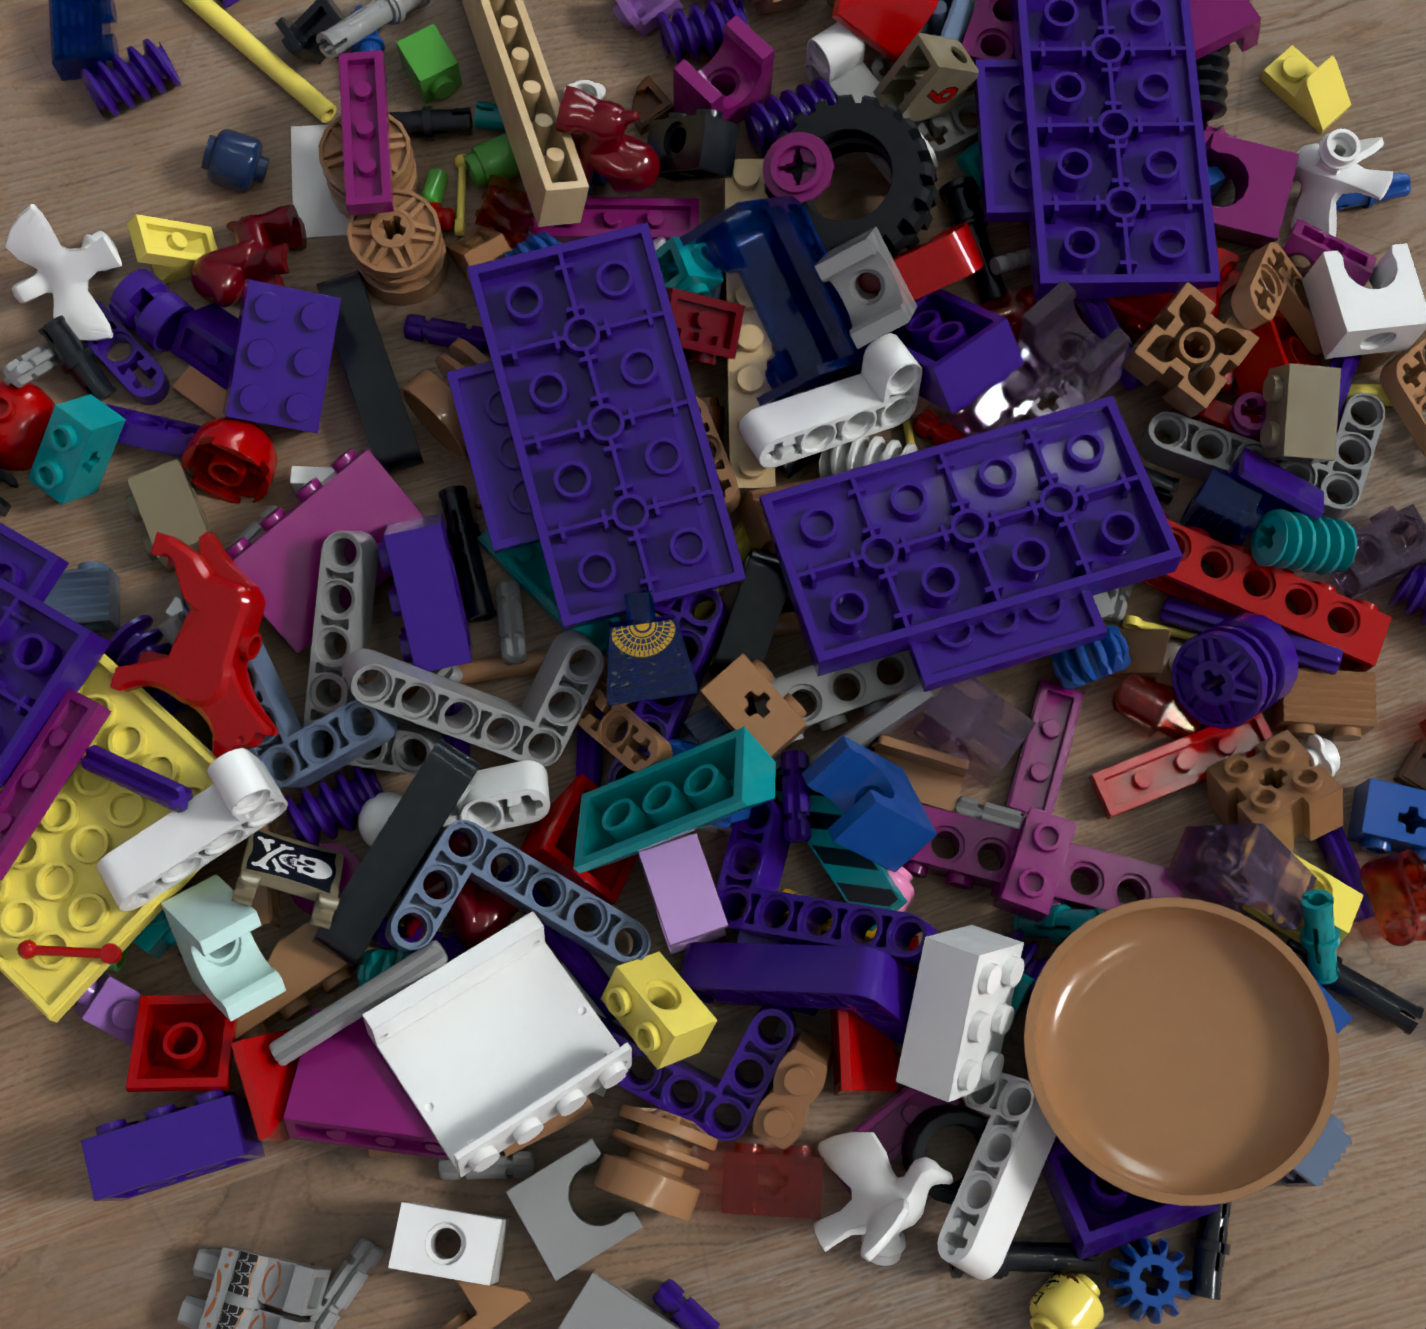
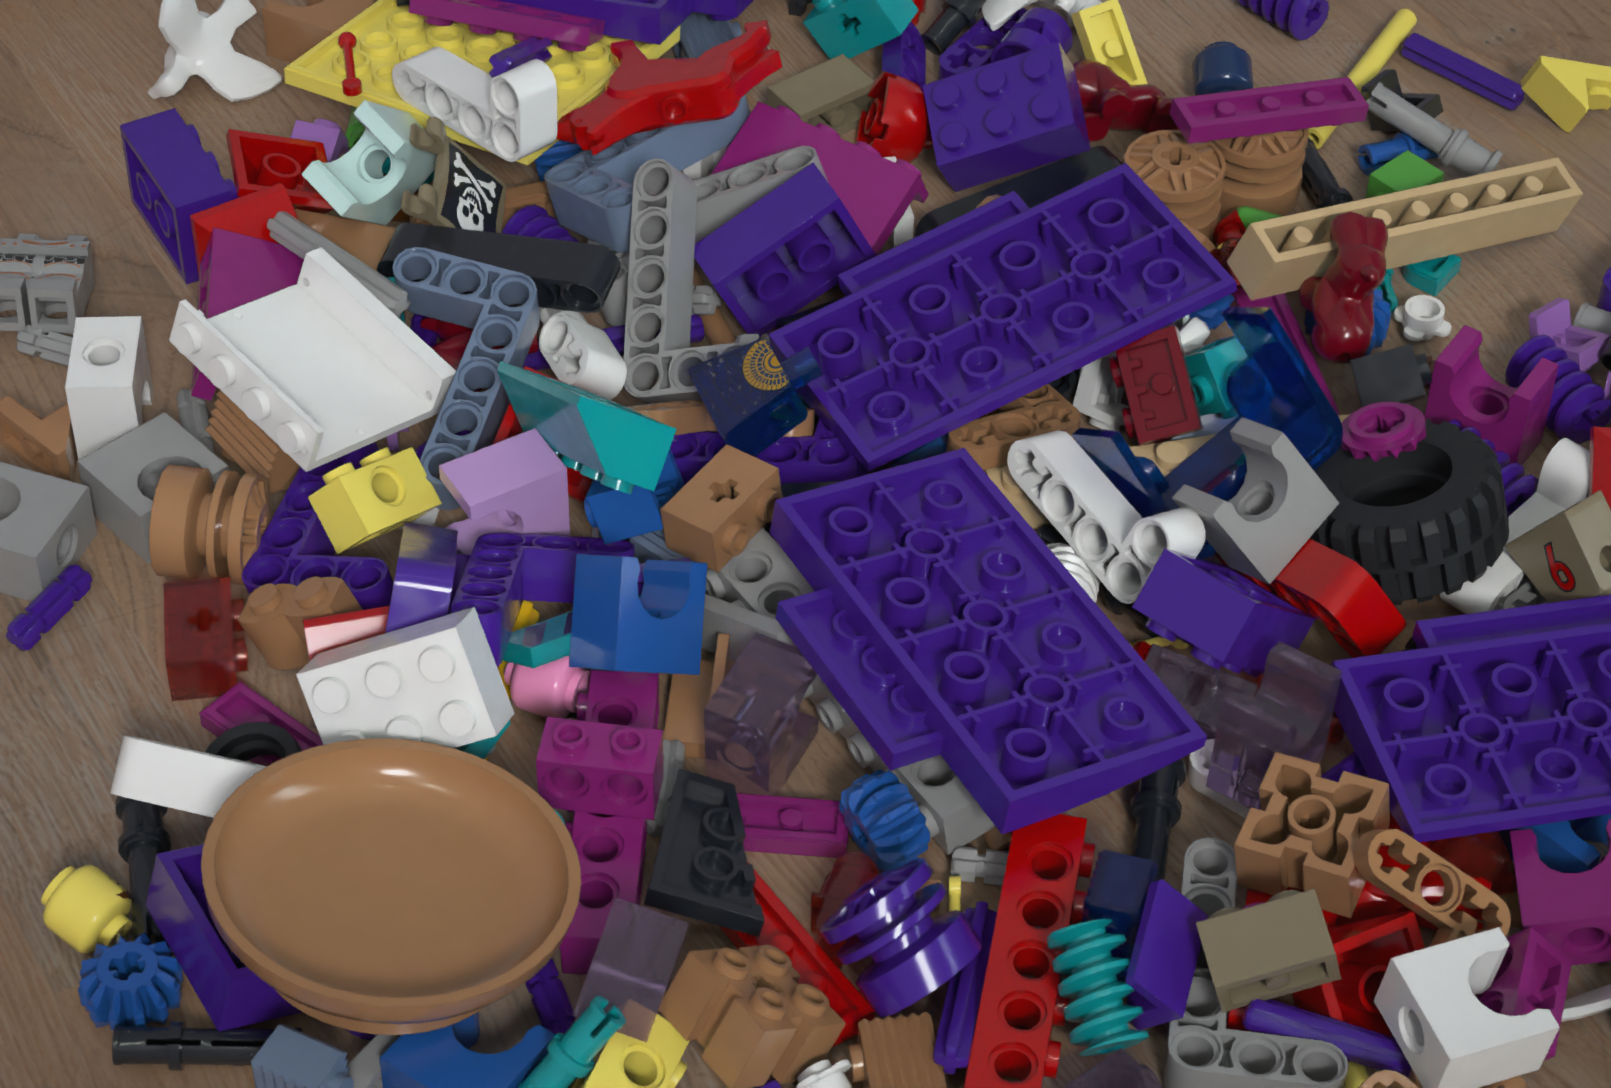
camera: 80 degrees right, 30 degrees down
(880, 1200) = (187, 714): white animal -> none
(1113, 805) = (703, 859): none -> black wing

